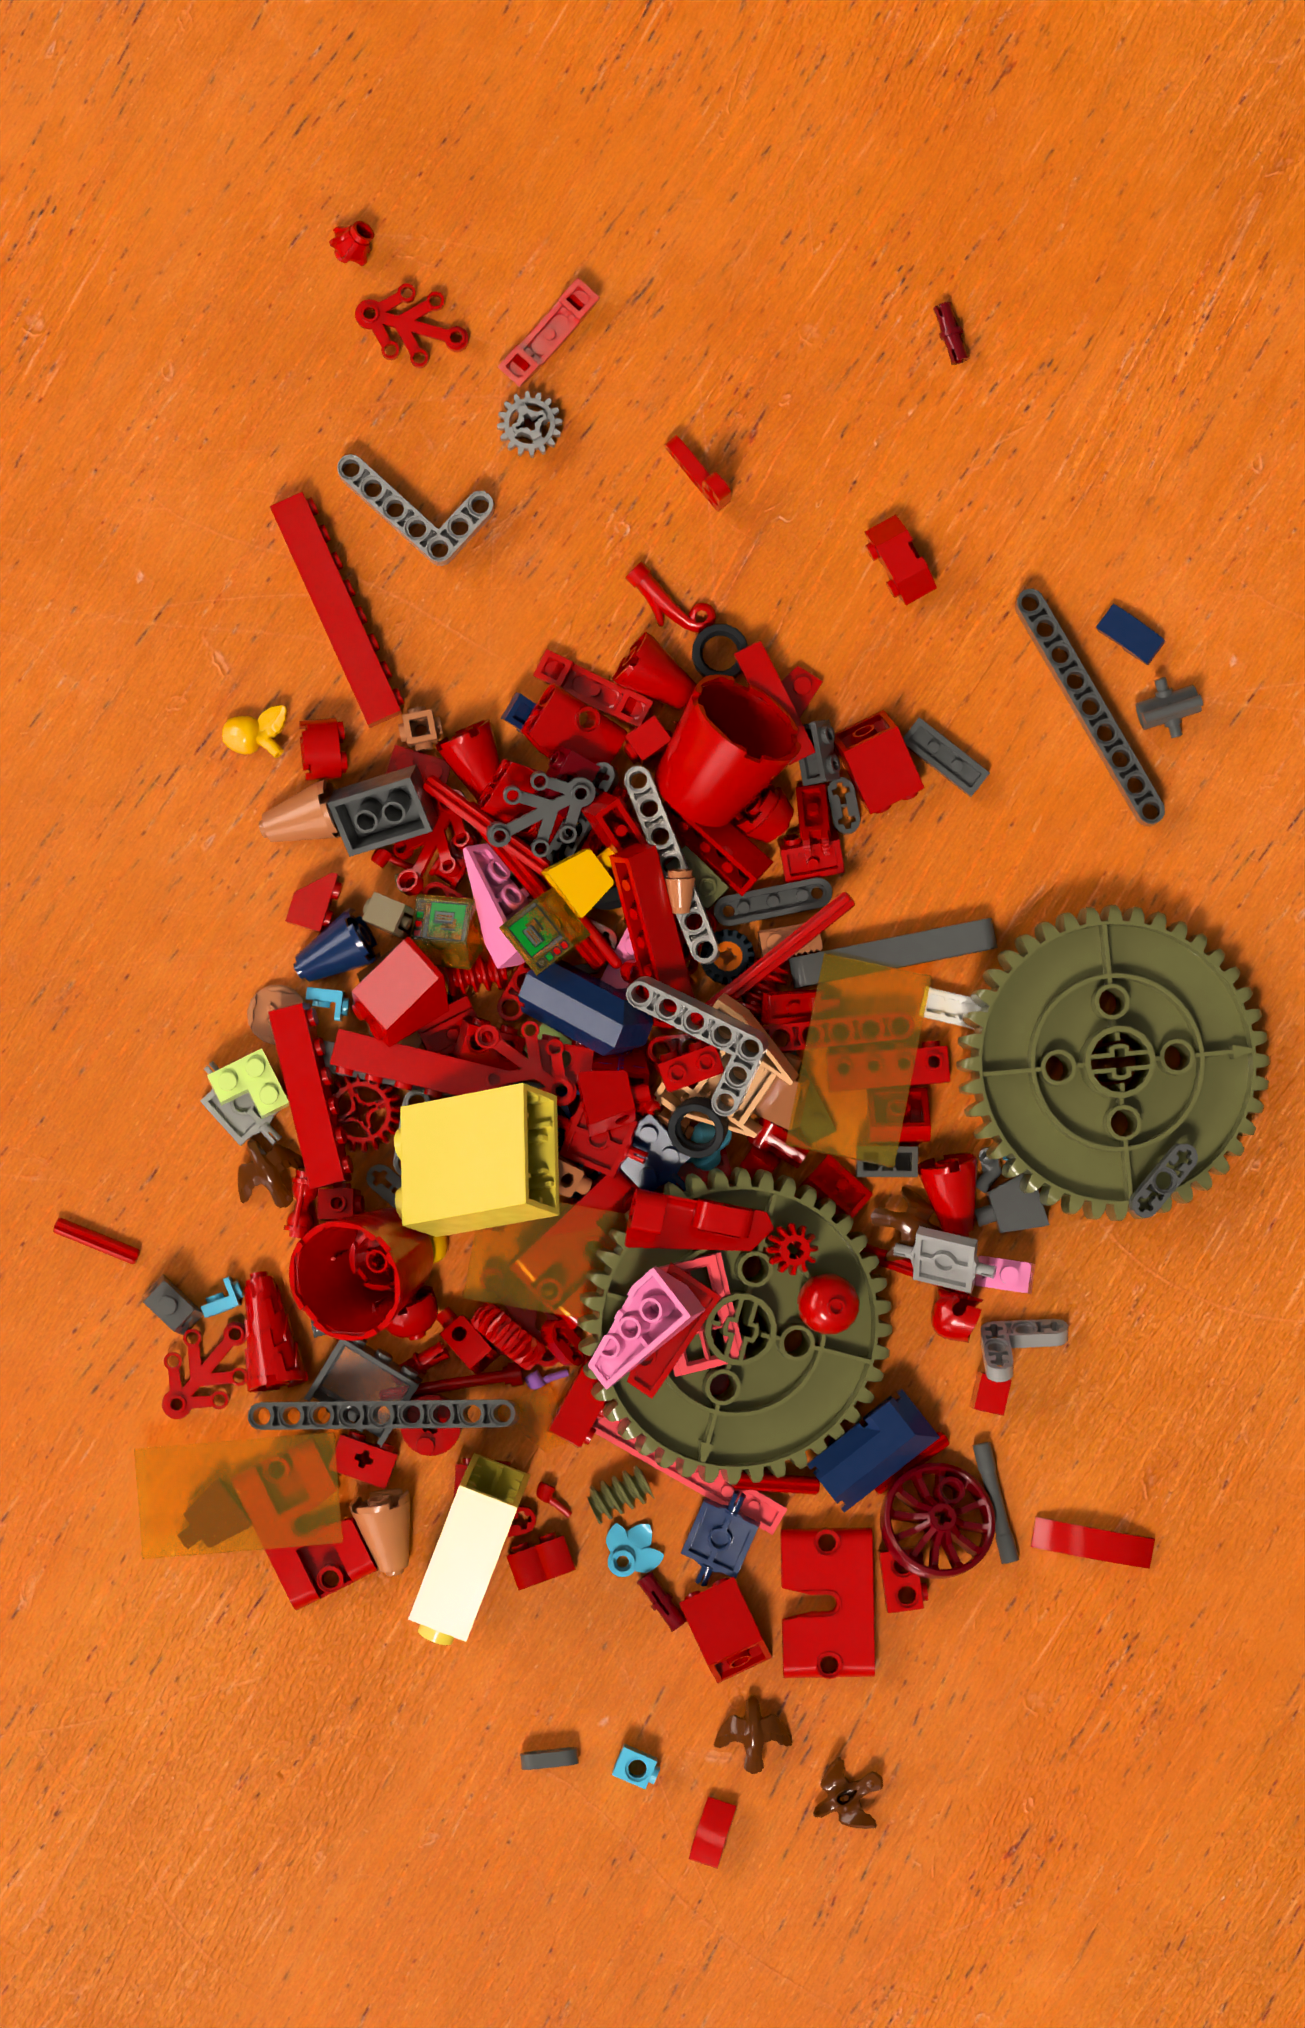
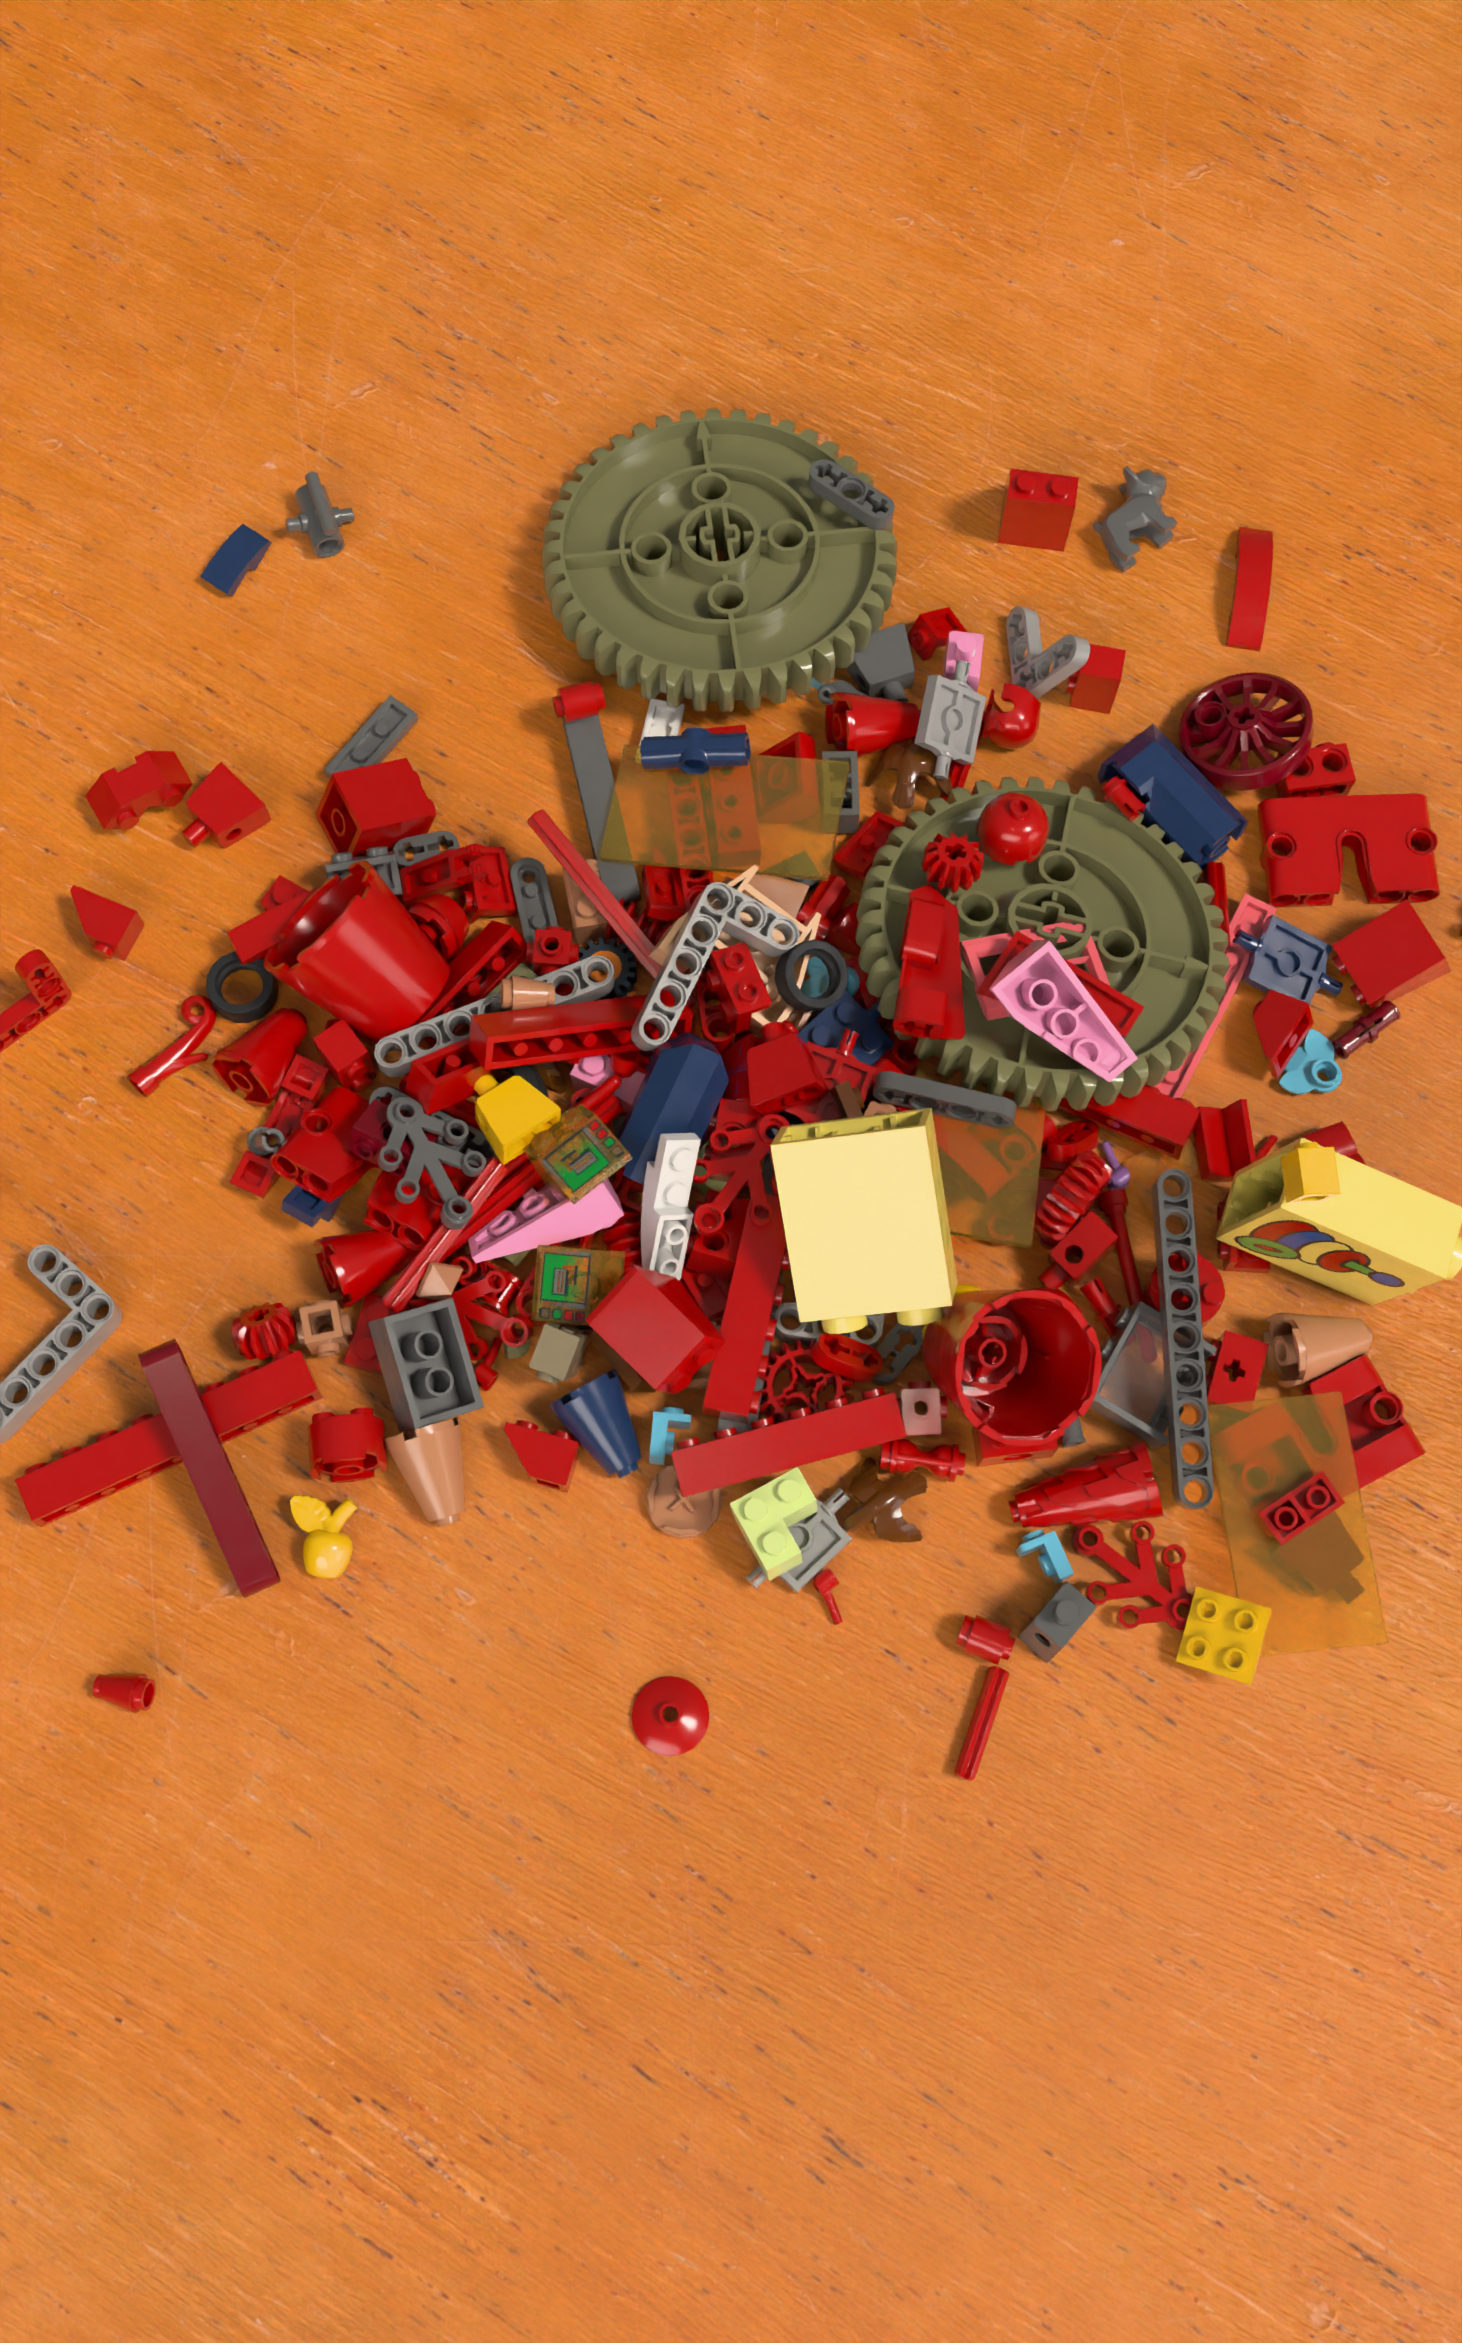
camera: 90 degrees left, 15 degrees down
(126, 1003) = (676, 1736): none -> red dish
(140, 584) = (127, 1691): none -> red cone
(153, 1431) = (1223, 1635): none -> yellow hinge
(159, 1247) = (985, 1639): none -> red brick
(207, 1123) = (824, 1583): none -> red hand
(247, 1499) = (1301, 1508): none -> red slope
(305, 642) = (209, 1468): none -> dark red beam
(381, 1146) = (847, 1357): none -> red beam
(418, 681) = (264, 1331): none -> red gear
(447, 821) = (439, 1281): none -> nougat slope
(482, 1508) = (1310, 1173): none -> yellow brick
(500, 1002) = (664, 1203): none -> white slope
(562, 1469) = (1224, 1141): none -> red panel
(579, 675) = (264, 1140): none -> dark grey pin
(580, 1152) = (847, 1100): none -> reddish brown plate
(586, 1232) = (944, 1099): none -> dark grey beam
(619, 1494) = (1244, 1075): olive piece -> none
(658, 1524) = (1281, 1028): none -> red slope
(730, 924) = (551, 950): none -> red brick
(778, 537) = (107, 924): none -> red slope
(864, 1404) = (1123, 798): none -> red pin
(882, 631) = (223, 810): none -> red torso
(912, 1036) = (695, 751): none -> dark blue piece
(970, 936) = (579, 701): none -> red brick
(987, 1469) = (1179, 690): dark grey piece -> none
(1048, 1255) = (932, 631): none -> red bracket
(1089, 692) = (310, 611): dark grey beam -> none
(1160, 1443) = (1136, 518): none -> dark grey animal
(1169, 1352) = (1037, 509): none -> red slope

